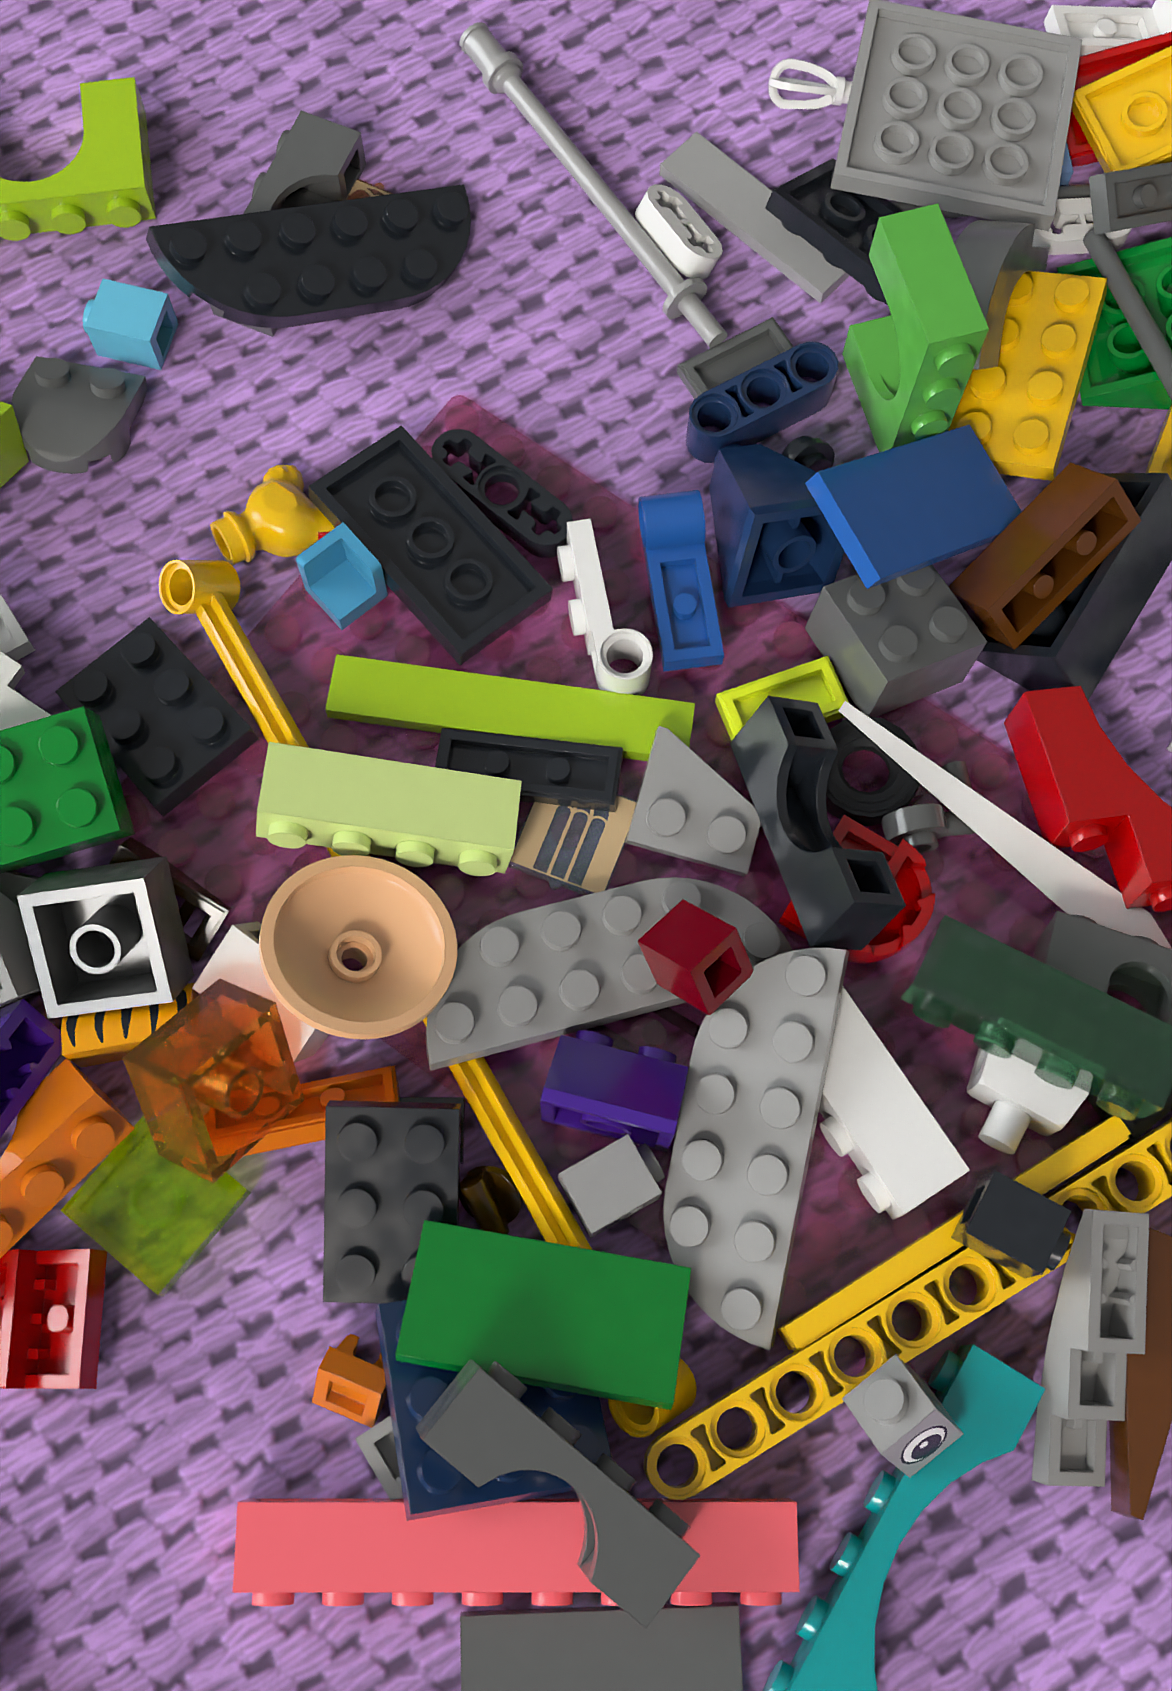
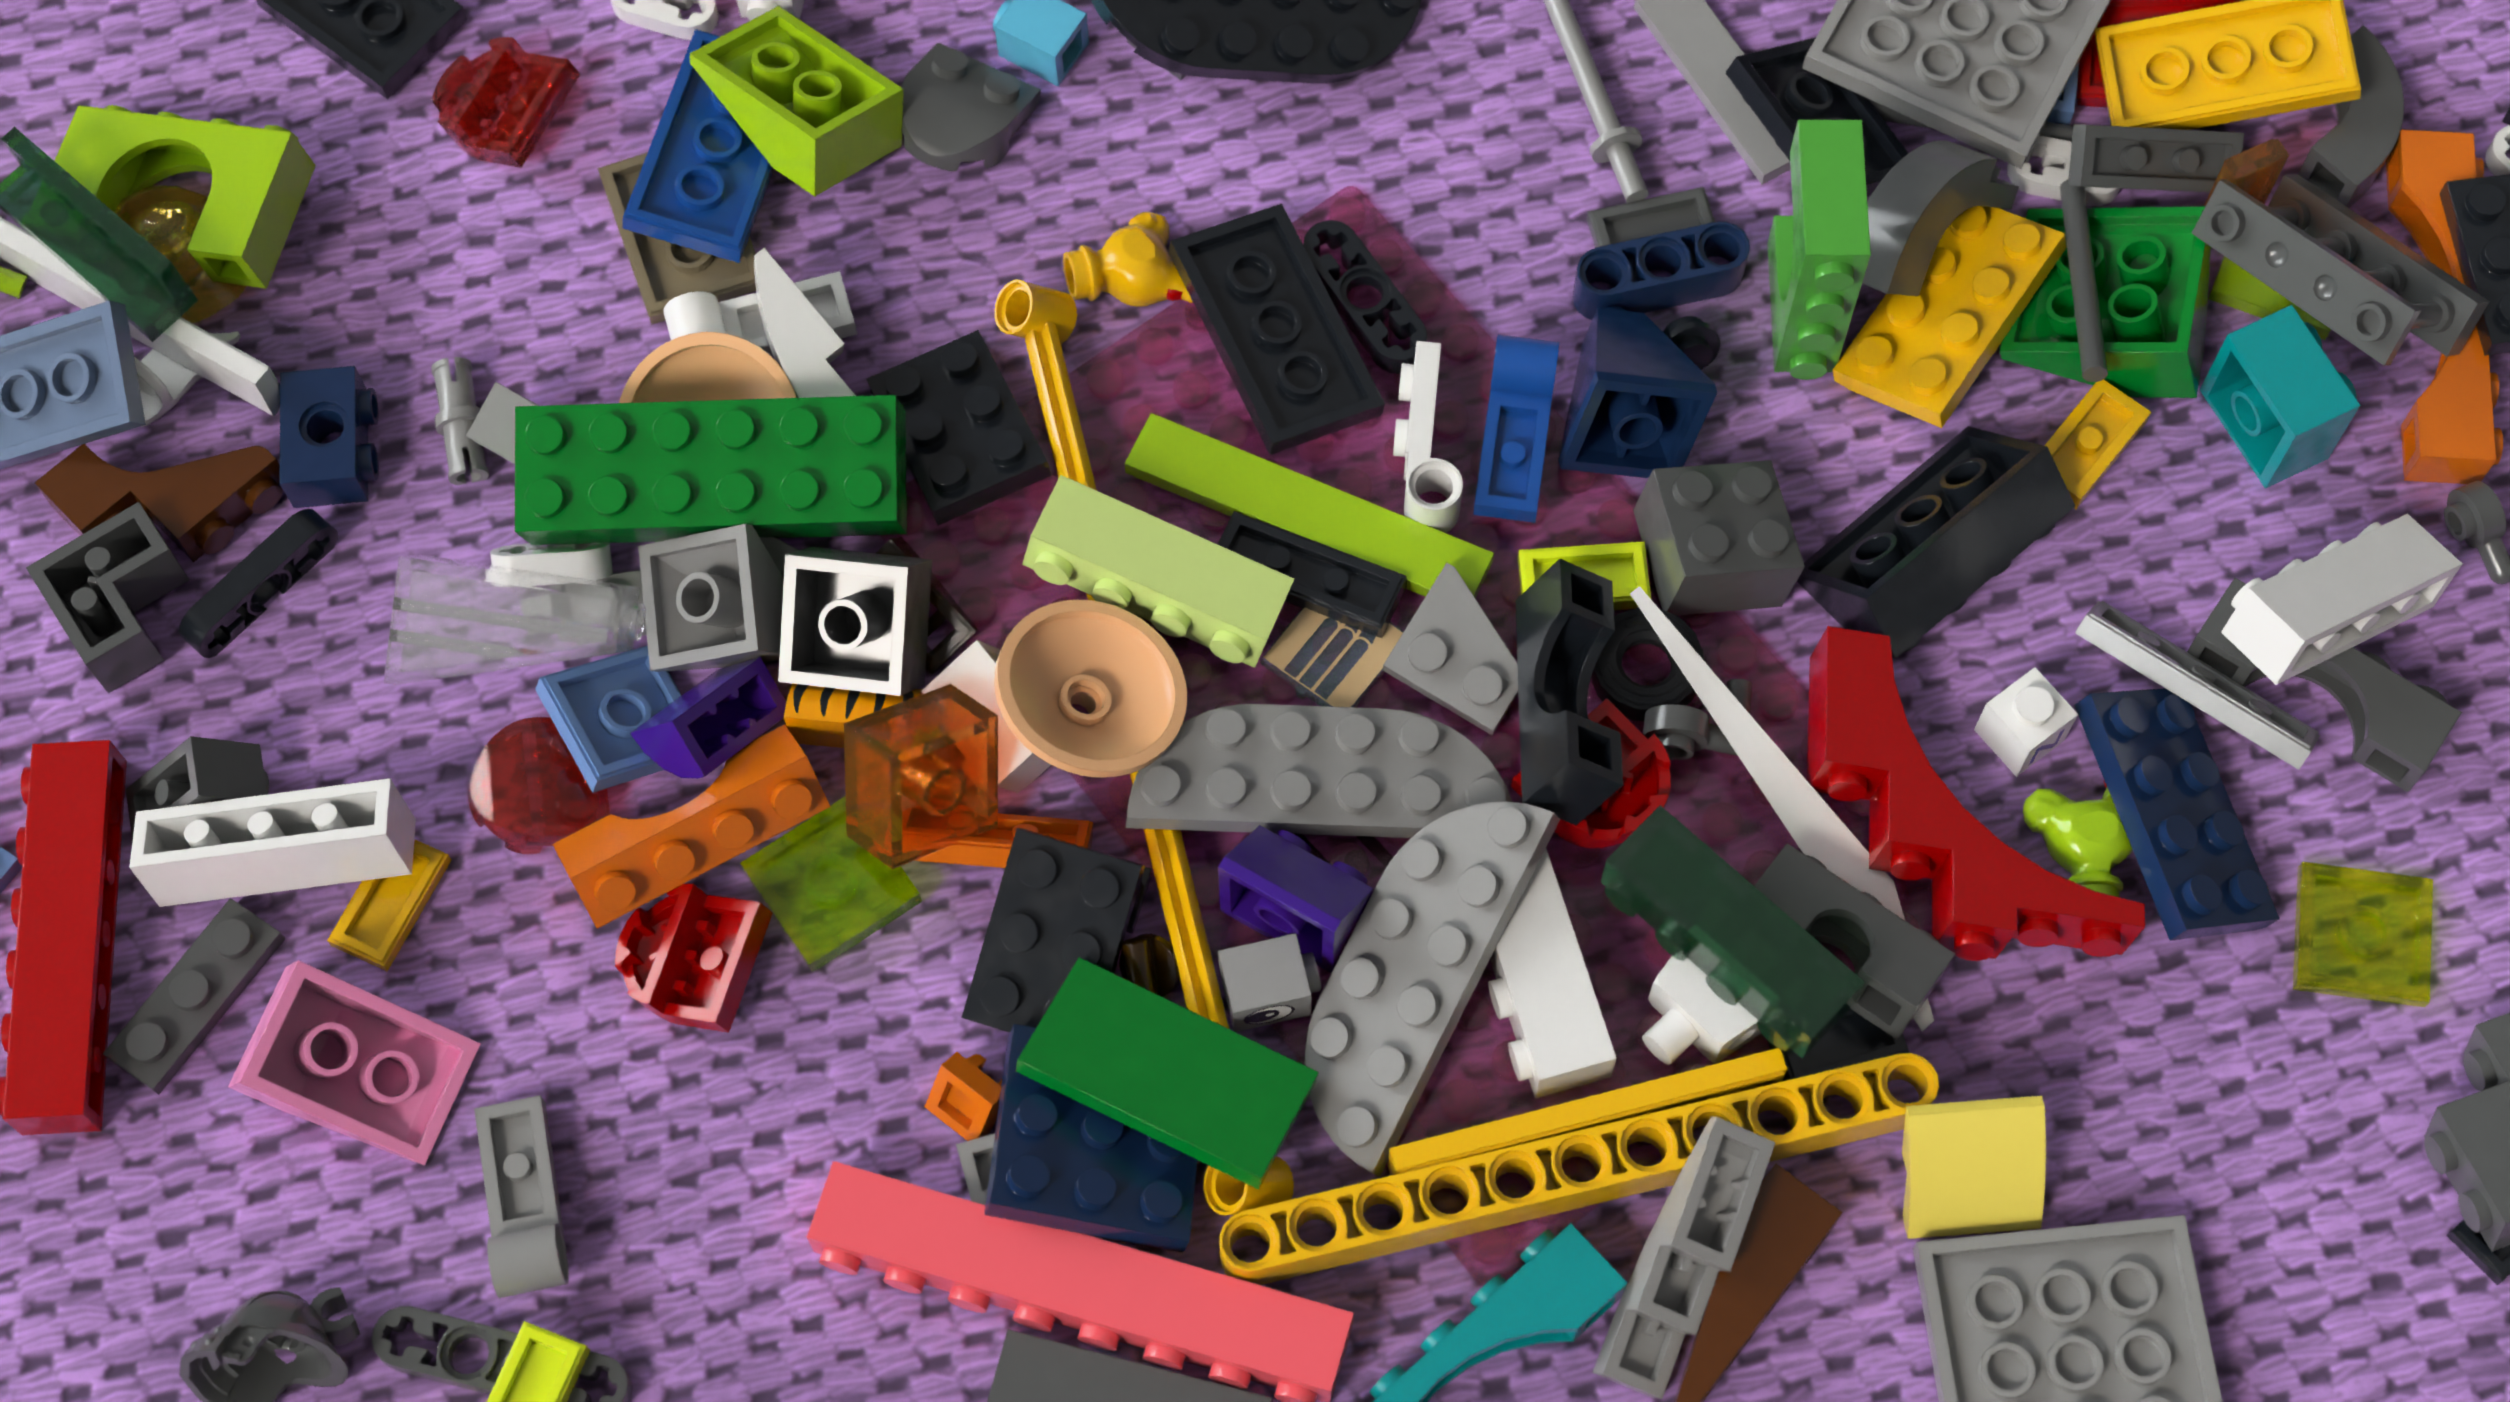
camera: 20 degrees right, 5 degrees down
(342, 576) = (1178, 338): dark azure panel -> none
(626, 1549) = (1182, 1289): dark grey arch -> none
(678, 231) = (1631, 74): white beam -> none
(696, 956) = (1409, 783): dark red brick -> none
(902, 1416) = (1476, 1258): light grey brick -> none
(914, 504) = (1777, 412): blue tile -> none
(1014, 1226) = (1635, 1111): black brick -> none
(1045, 553) = (1894, 497): reddish brown brick -> none

